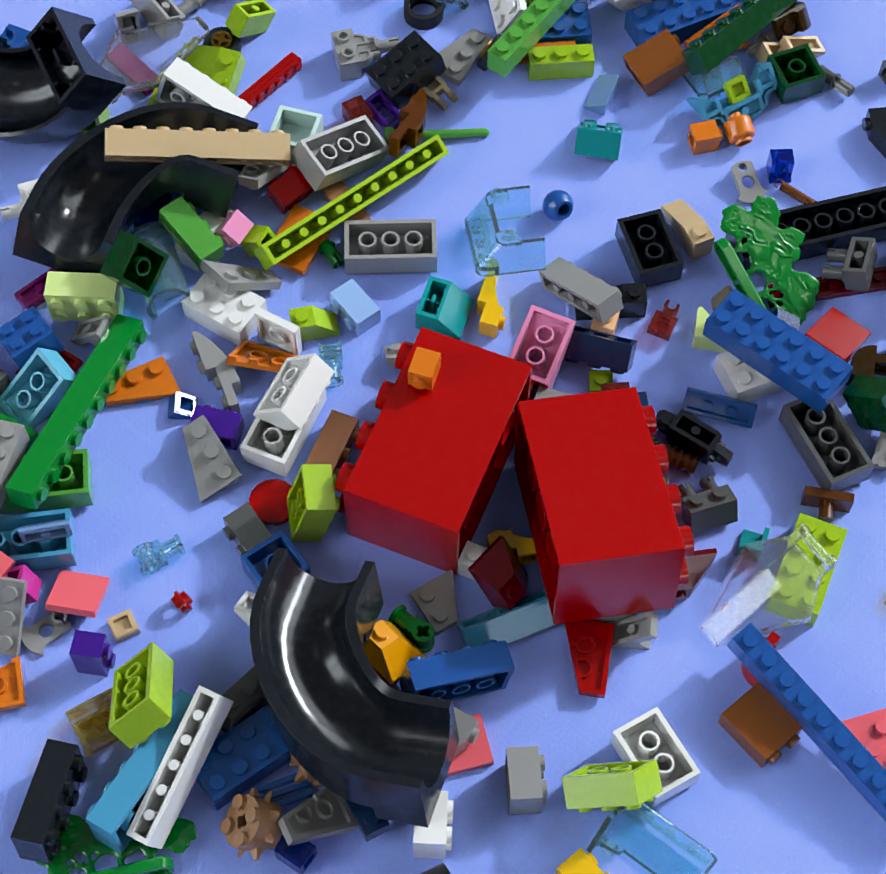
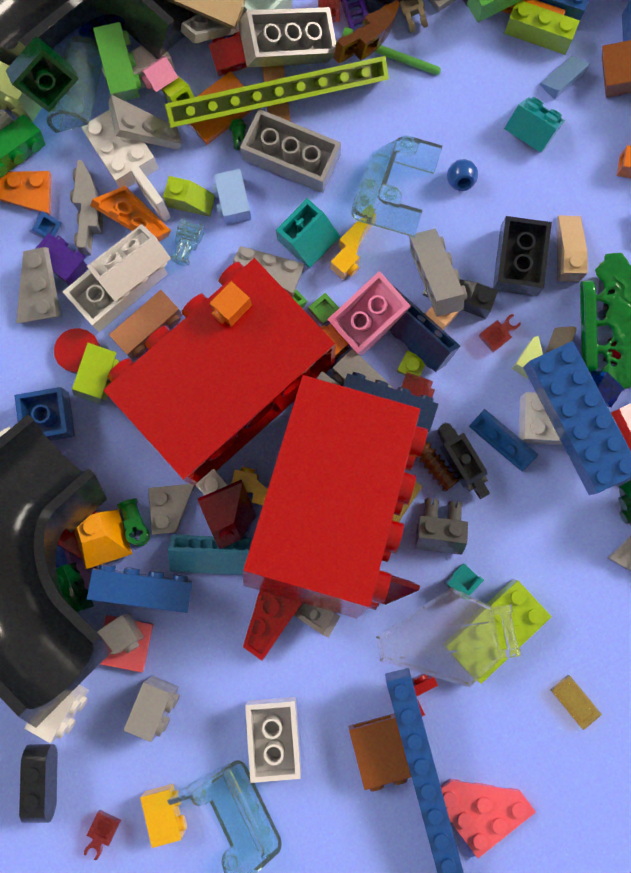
camera: 30 degrees right, 20 degrees up
(245, 528) = (39, 369): dark grey brick -> none
(612, 785) = (216, 757): lime brick -> none
(826, 445) = (579, 524): dark grey brick -> none
(827, 501) = (550, 575): reddish brown tile -> none

